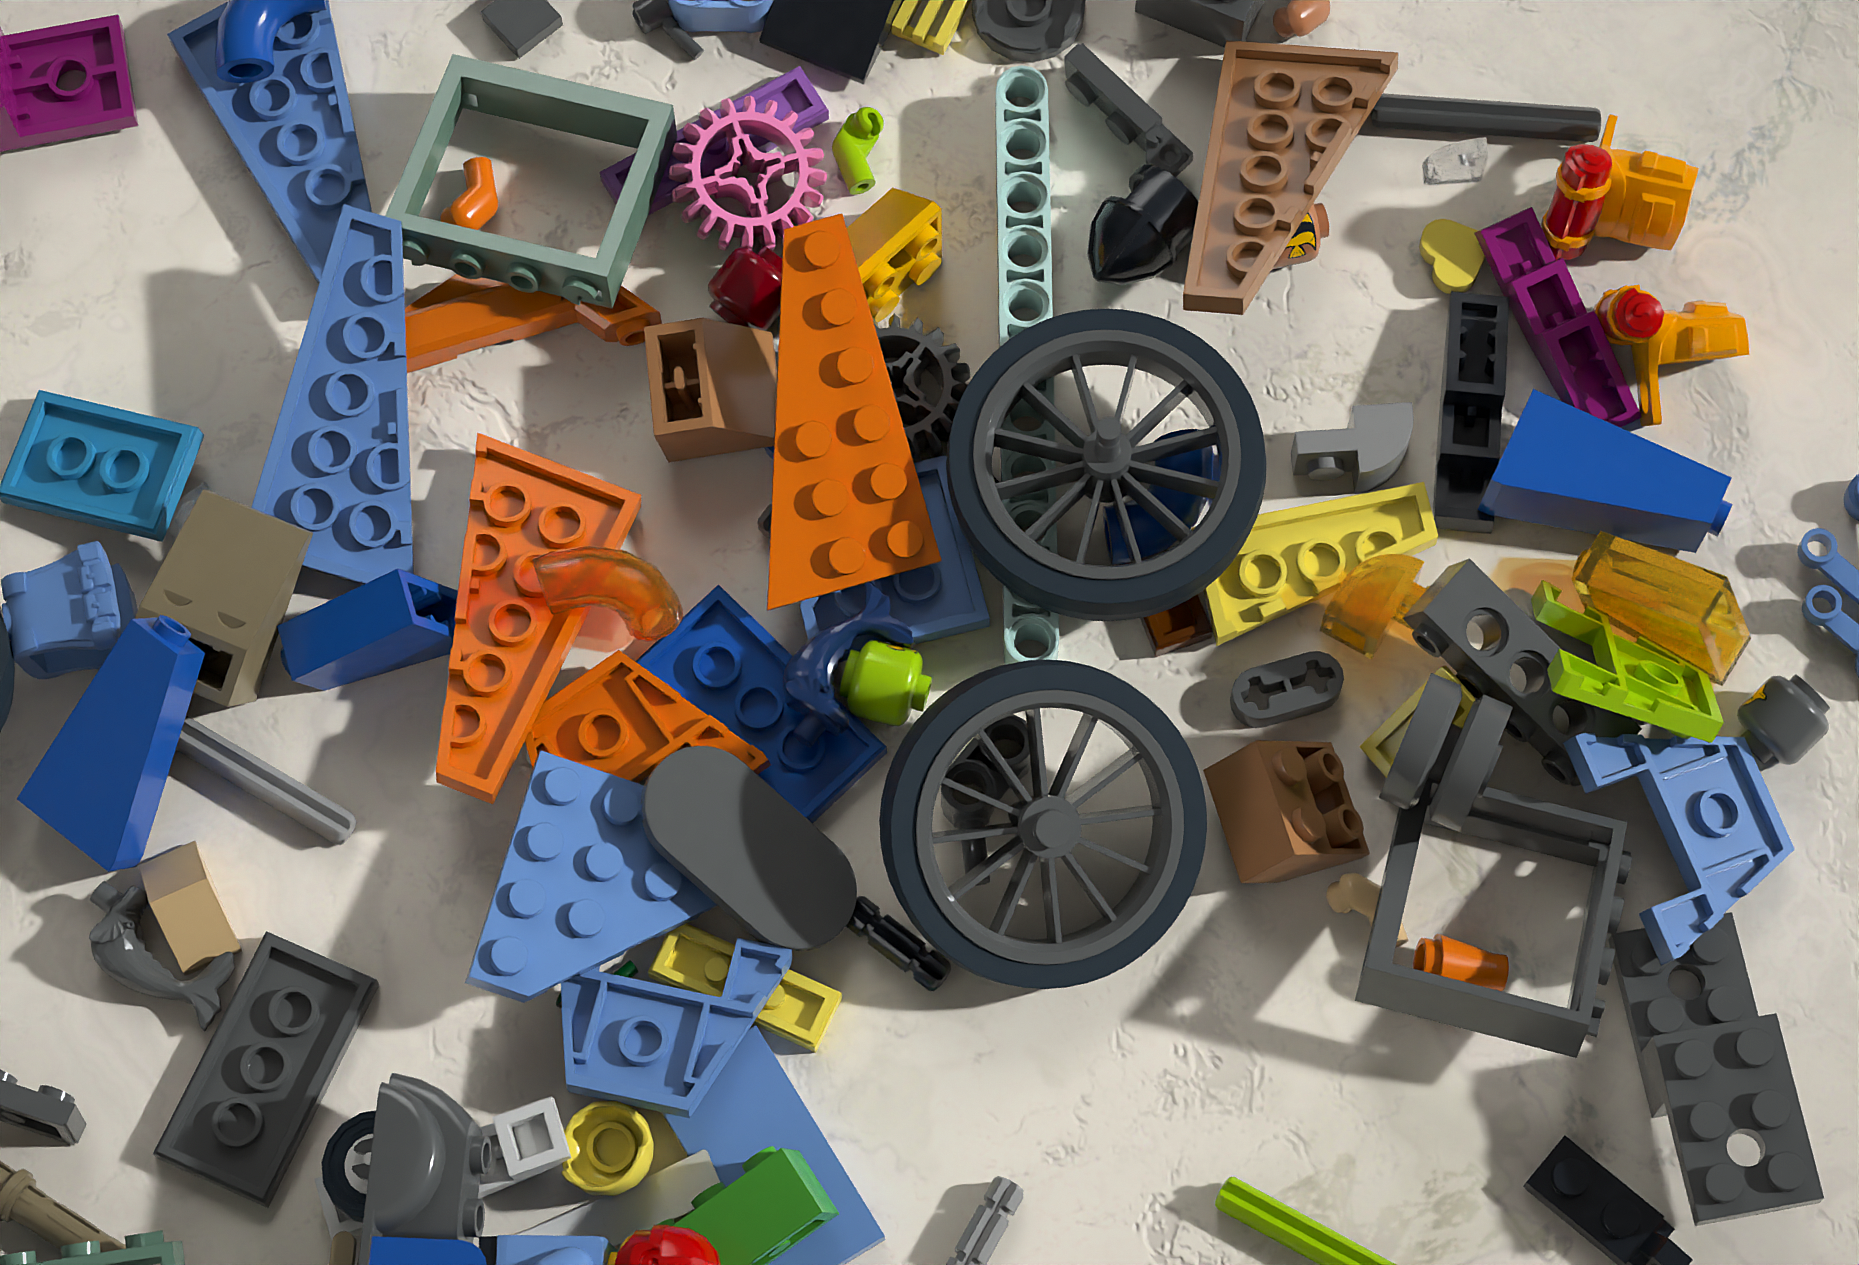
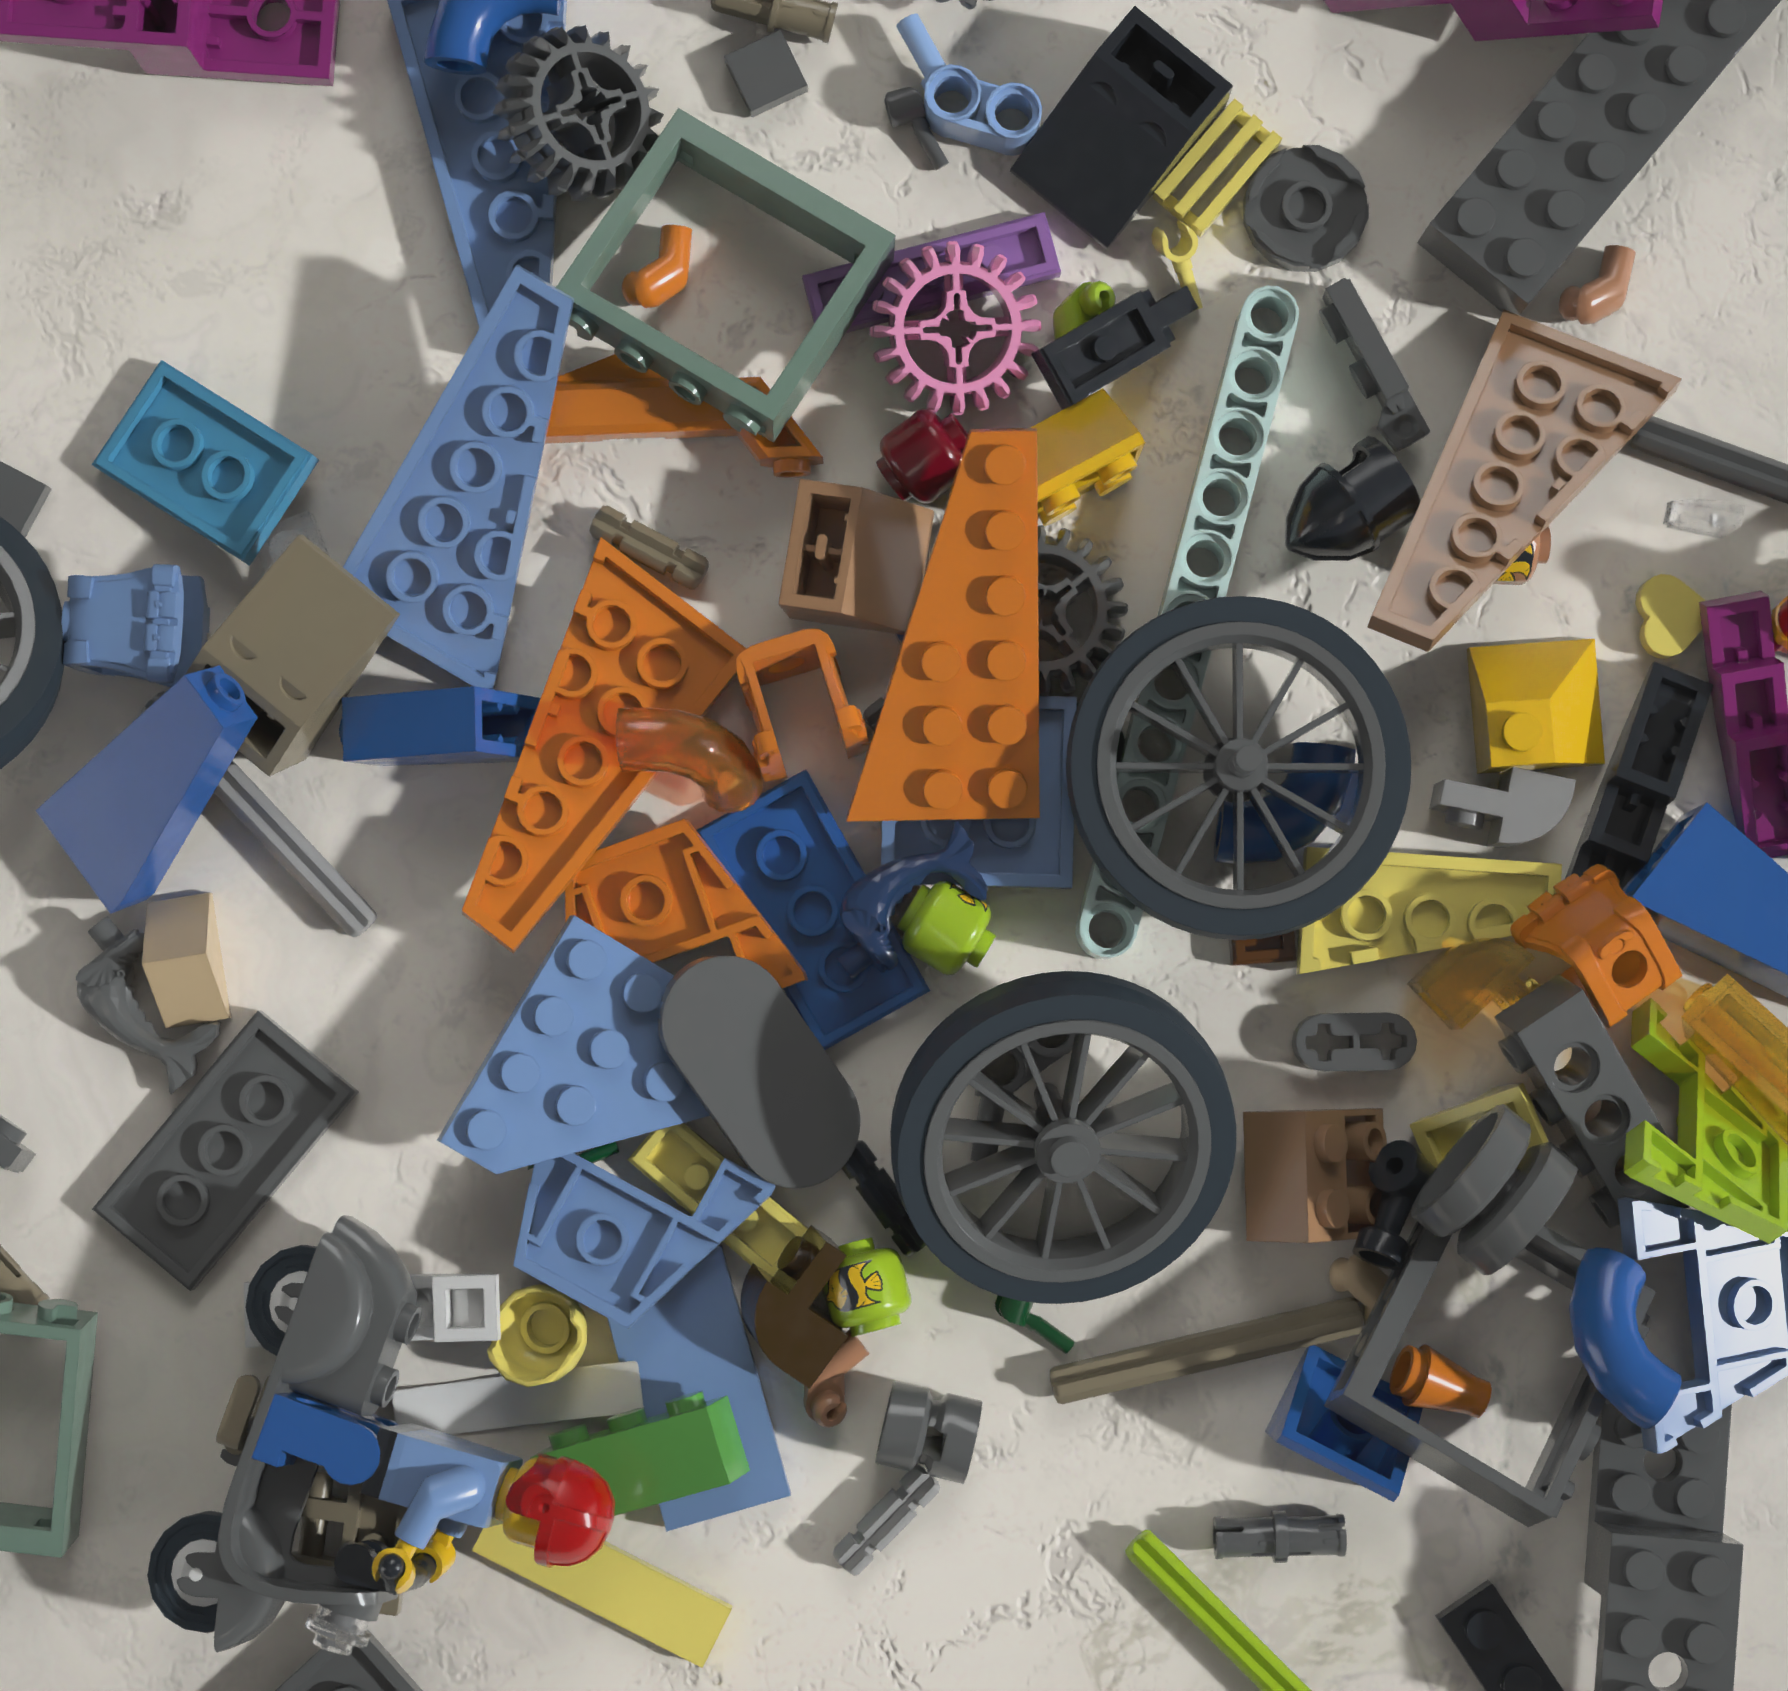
camera: 10 degrees right, 15 degrees up
(370, 70) = (574, 69): none -> dark grey gear
(525, 433) = (649, 547): none -> dark tan axle
(700, 482) = (786, 658): none -> orange piece
(829, 1067) = (781, 1311): none -> dark brown brick
(888, 1122) = (826, 1397): none -> nougat arm
(889, 152) = (1111, 344): none -> black hinge
(901, 1022) = (867, 1289): none -> lime head
(931, 75) = (1180, 256): none -> light yellow hand
(975, 1136) = (905, 1428): none -> dark grey wheel
(1046, 1009) = (1019, 1313): none -> dark green hand
(1233, 999) = (1206, 1350): none -> dark tan axle
(1354, 1148) = (1279, 1536): none -> dark grey pin
(1359, 359) = (1535, 706): none -> yellow slope
(1359, 785) = (1399, 1175): none -> black leg
(1377, 1038) = (1329, 1439): none -> blue slope
(1463, 514) = (1604, 937): none -> orange piece
(1596, 862) = (1609, 1338): none -> blue cylinder

